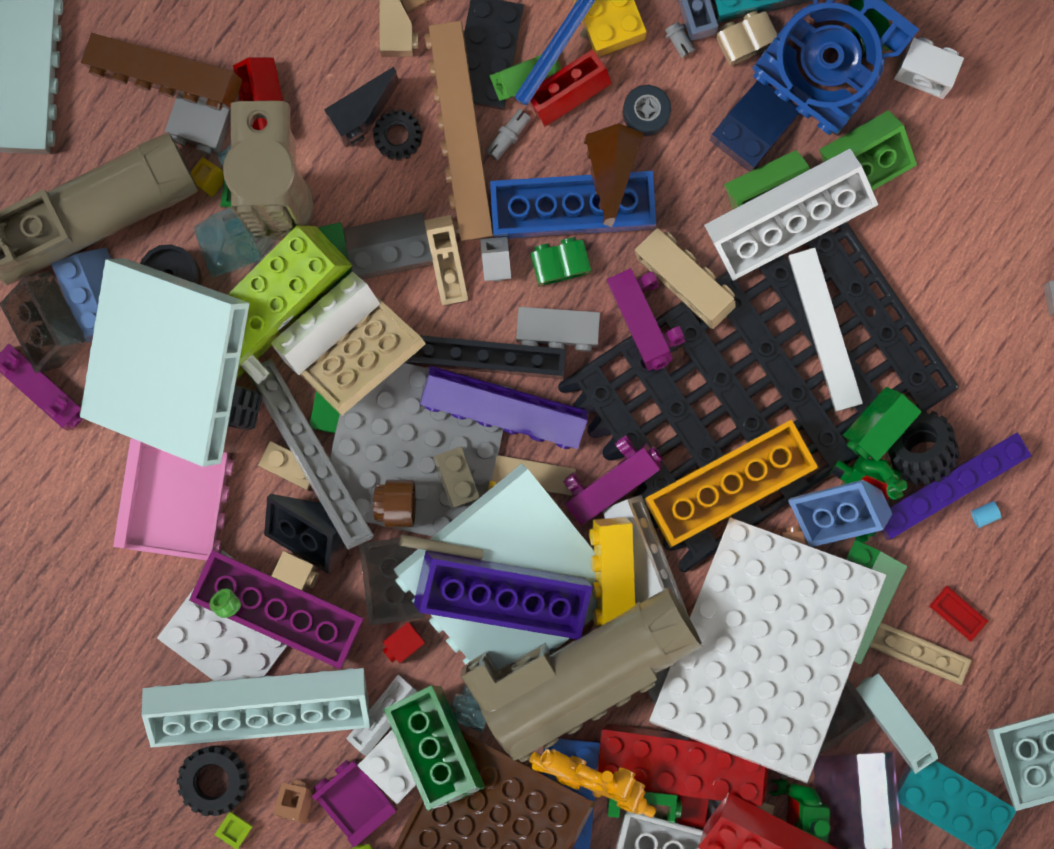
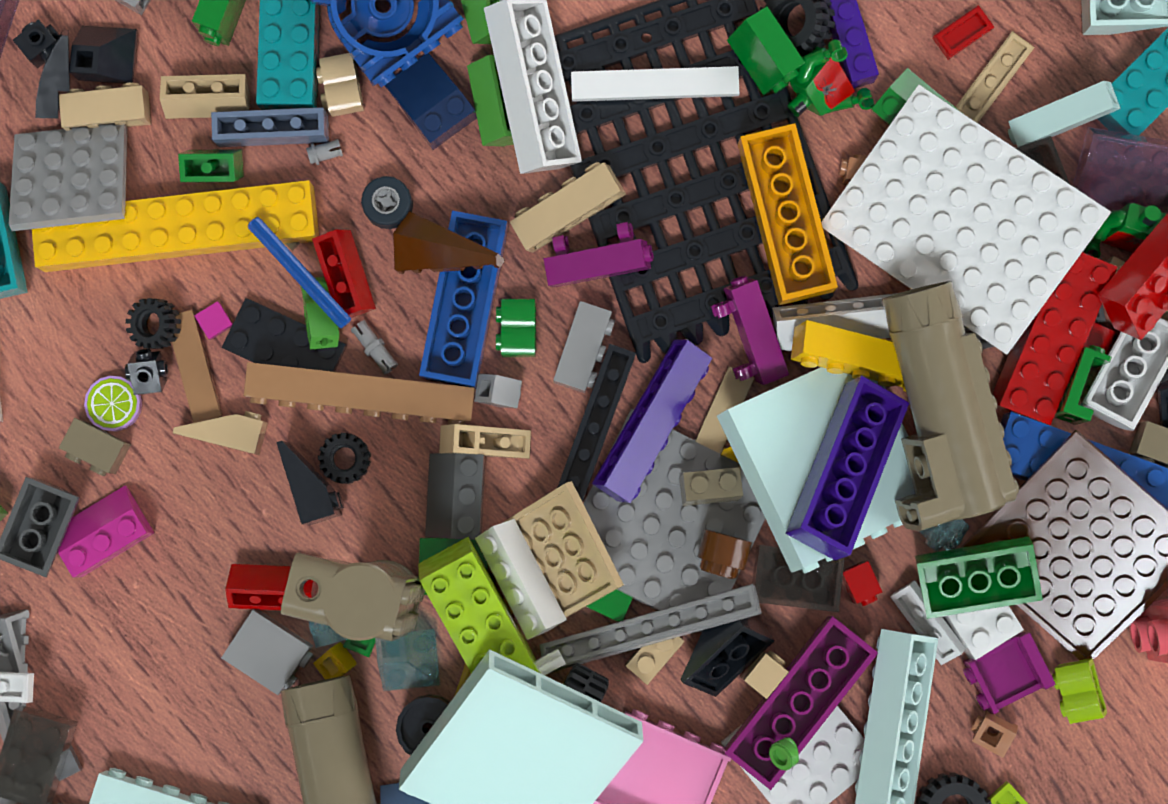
camera: 75 degrees left, 0 degrees up
(161, 71) = (215, 682): reddish brown brick -> none
(441, 547) = (785, 517): dark tan bar -> none
(574, 773) = (1039, 445): light orange plant -> none
(841, 512) = (844, 114): medium blue slope -> none

